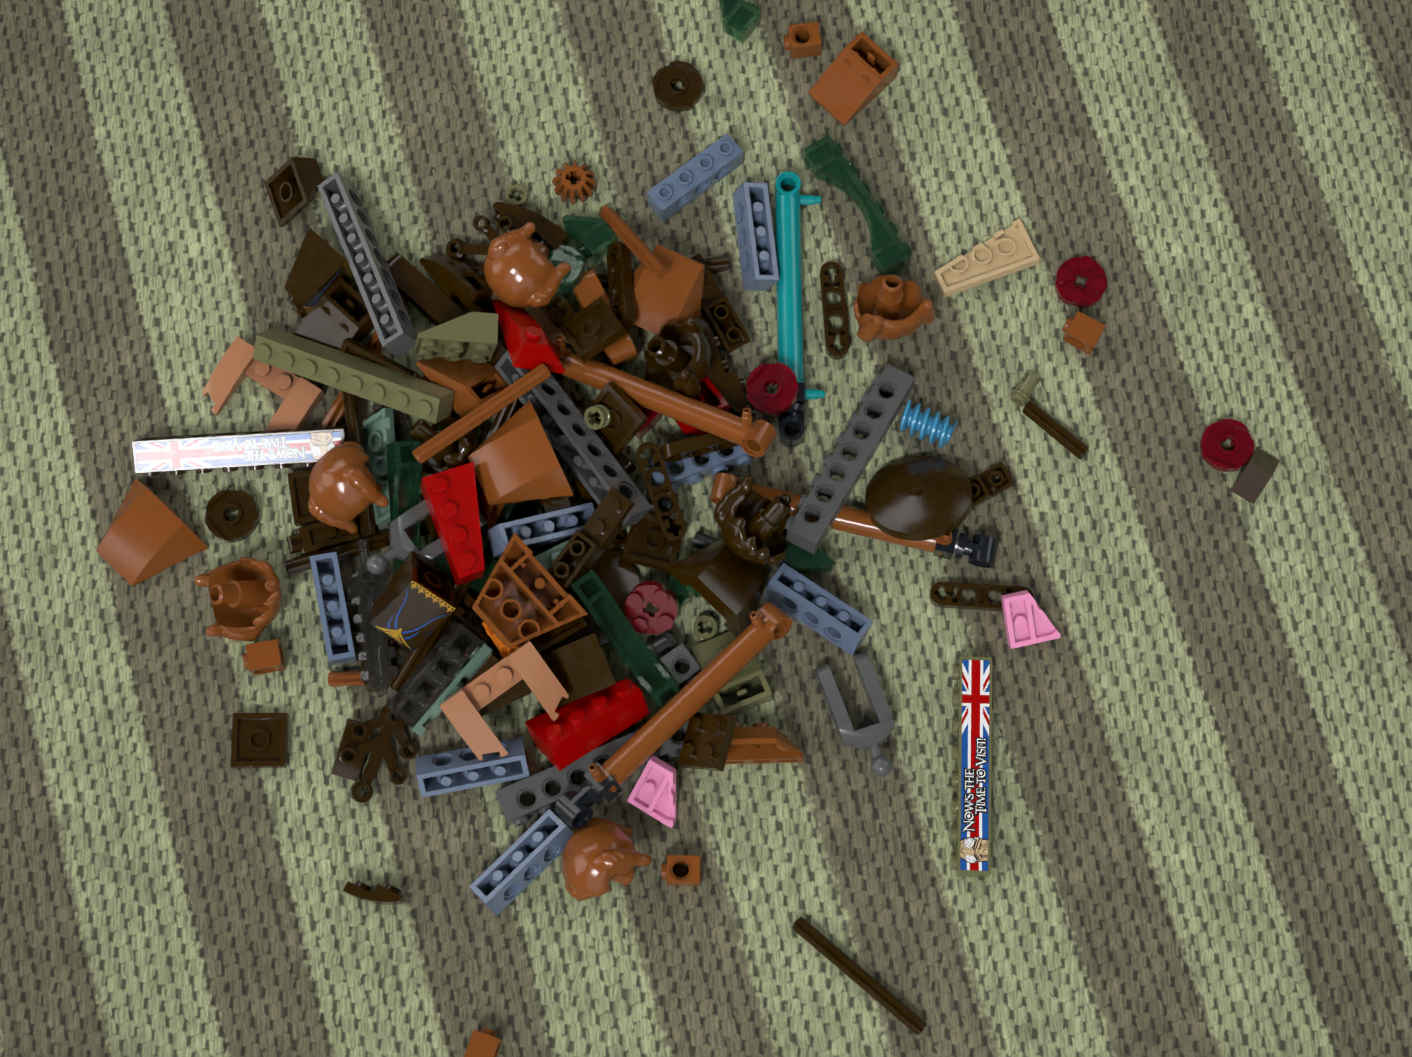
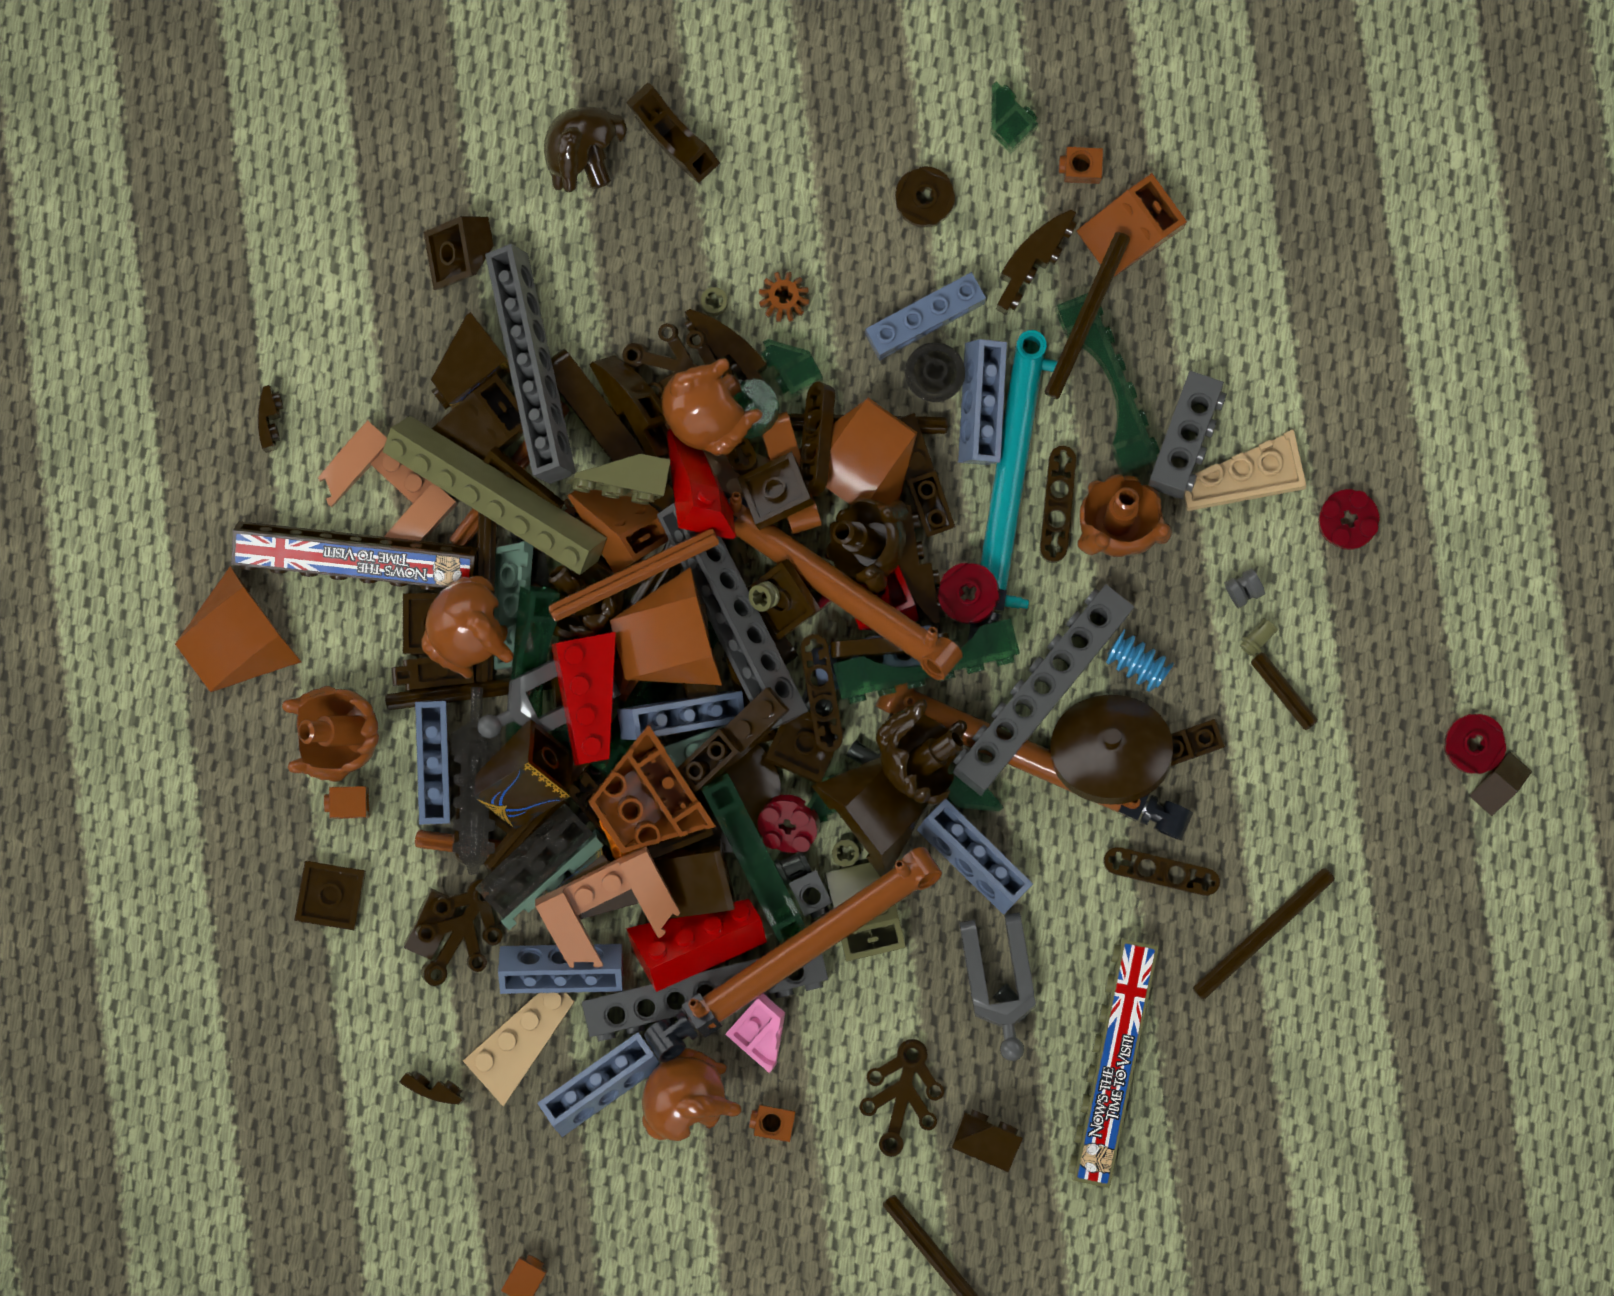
camera: 10 degrees right, 10 degrees up
(151, 347) = (268, 410): none -> dark brown slope
(217, 514) = (316, 627): dark brown plate -> none
(381, 83) = (578, 142): none -> dark brown piece
(442, 844) = (514, 1047): none -> tan wing
(454, 68) = (671, 134): none -> dark brown arch
(633, 242) = (839, 389): dark orange axle -> none
(695, 471) = (863, 676): none -> clear green arch
(707, 741) = (824, 991): dark brown plate -> none
(711, 218) = (935, 372): none -> clear smoke cone
(761, 745) = (869, 996): dark orange wedge -> none
(775, 114) = (1037, 249): none -> dark brown slope
(792, 824) = (903, 1091): none -> dark brown plant
(829, 151) = (1087, 315): none -> dark brown axle
(876, 853) = (986, 1141): none -> dark brown slope
(934, 198) = (1196, 390): none -> dark grey brick
(1005, 350) = (1244, 588): none -> dark grey wheel
(1025, 620) = (1205, 910): bright pink wing -> none
(1080, 634) = (1263, 933): none -> dark brown axle
(1082, 332) = (1338, 581): dark orange brick -> none

